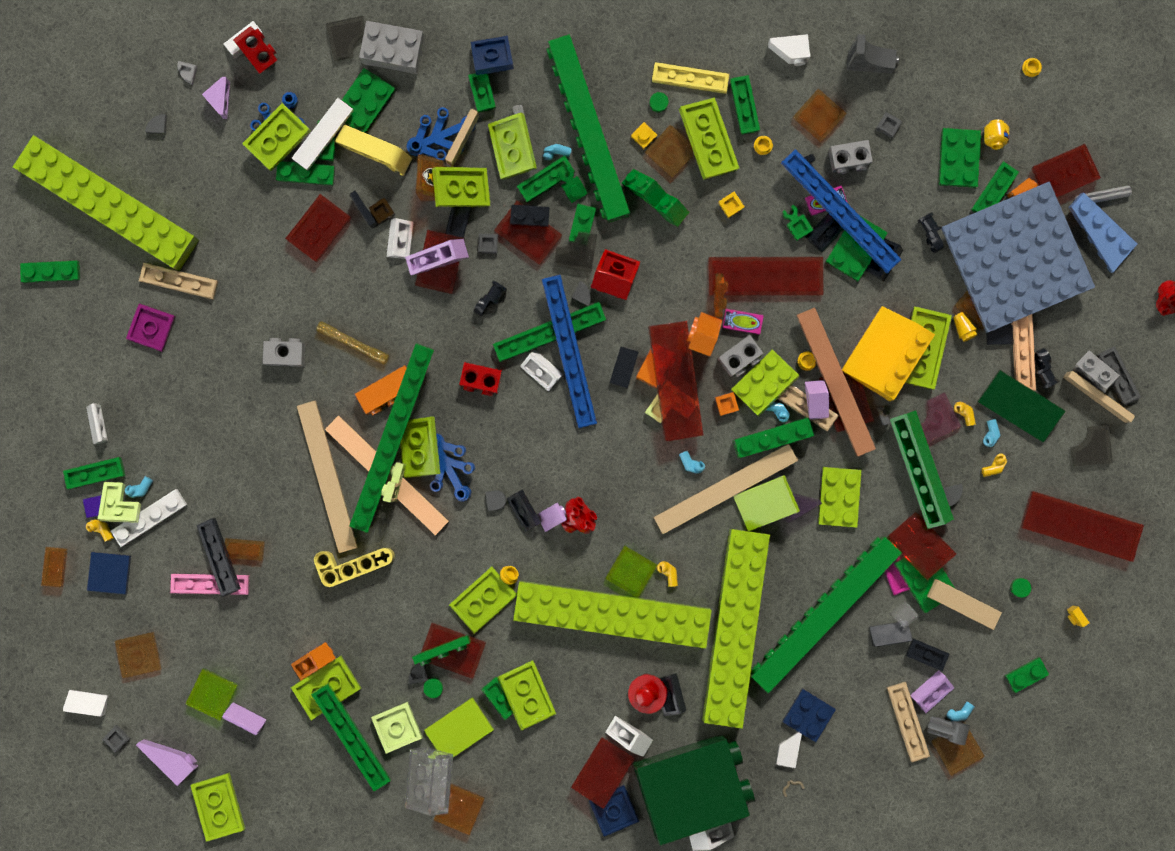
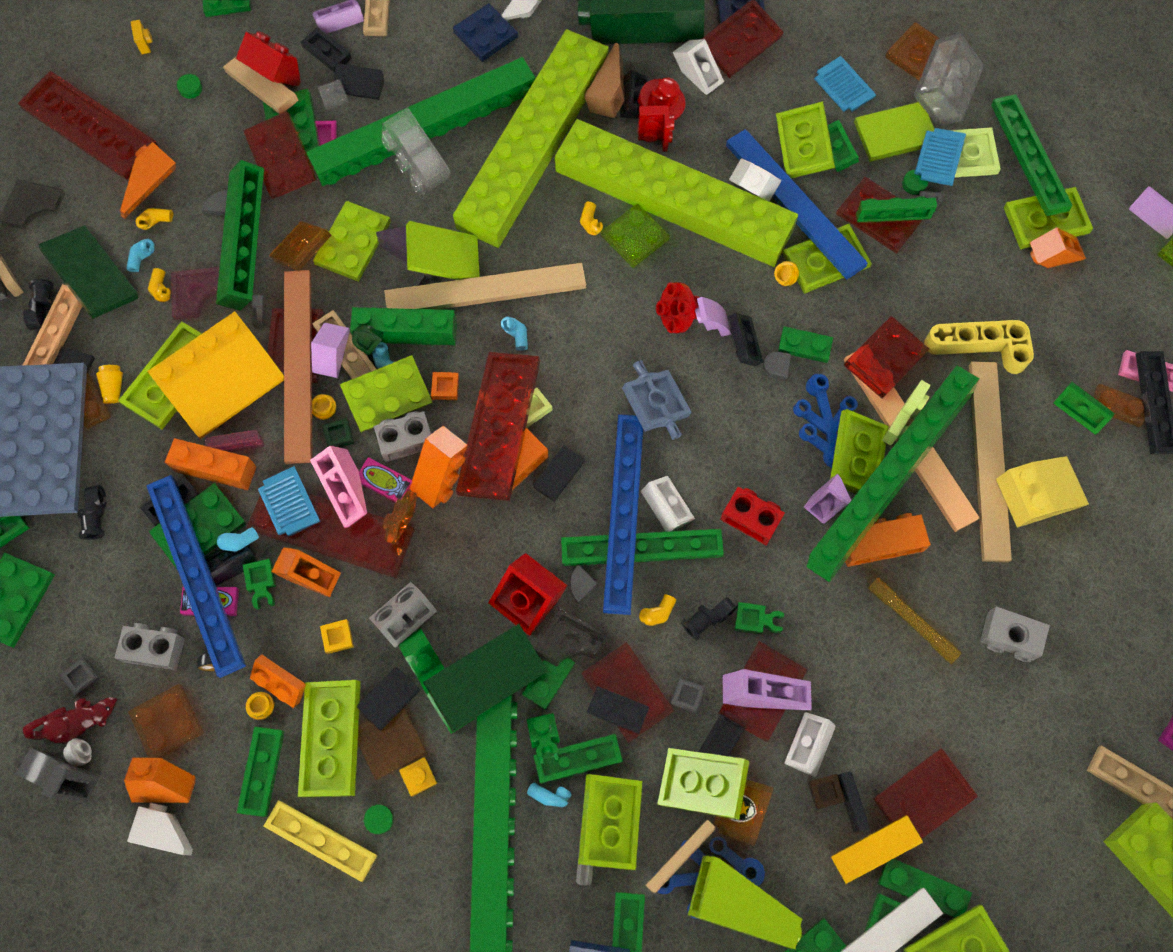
camera: 160 degrees left, 15 degrees down
(269, 536) = (1084, 408): none -> green plate
(285, 462) = (1041, 490): none -> light yellow slope
(341, 185) = (876, 849): none -> yellow tile
(374, 149) = (816, 887): light yellow beam -> none
(418, 530) = (886, 357): none -> clear red plate
(420, 120) = (738, 904): none -> lime slope
(420, 713) = (940, 156): none -> dark azure window
(432, 403) = (828, 500): none -> lavender slope
(460, 308) = (752, 619): none -> green plate
(479, 523) = (805, 344): none -> green plate
(510, 760) = (844, 85): none -> dark azure window
(519, 636) = (810, 218): none -> blue tile
(523, 290) = (658, 614): none -> yellow arm
(555, 642) = (755, 179): none -> white slope
(572, 441) = (656, 400): none -> sand blue plate
(621, 204) = (485, 677): none -> dark green tile
(648, 663) = (655, 124): none -> red bracket
(680, 175) = (388, 698): none -> black slope
(692, 231) = (403, 614): none -> light grey brick
(692, 689) = (607, 90): none -> medium nougat slope
(758, 163) = (277, 681): none -> orange plate
(769, 239) = (306, 571): none -> orange slope
(769, 306) = (341, 483): none -> bright pink slope
(788, 344) = (338, 433): none -> dark green tile
(793, 416) = (366, 338): none -> dark green tile
(800, 281) = (288, 502): none -> dark azure window
(805, 76) = (158, 782): none -> orange slope
(816, 573) = (414, 152): none -> clear brick
(824, 243) = (235, 542): none -> medium azure arm
(856, 313) = (236, 441): none -> clear pink tile
(865, 291) = (210, 464): none -> orange brick
(866, 77) = (77, 752): none -> white plate
(874, 476) = (300, 245): none -> clear orange tile
(879, 92) = (65, 725): none -> dark red animal
(963, 619) = (269, 59): none -> red slope
(1014, 498) = (148, 172): none -> orange slope

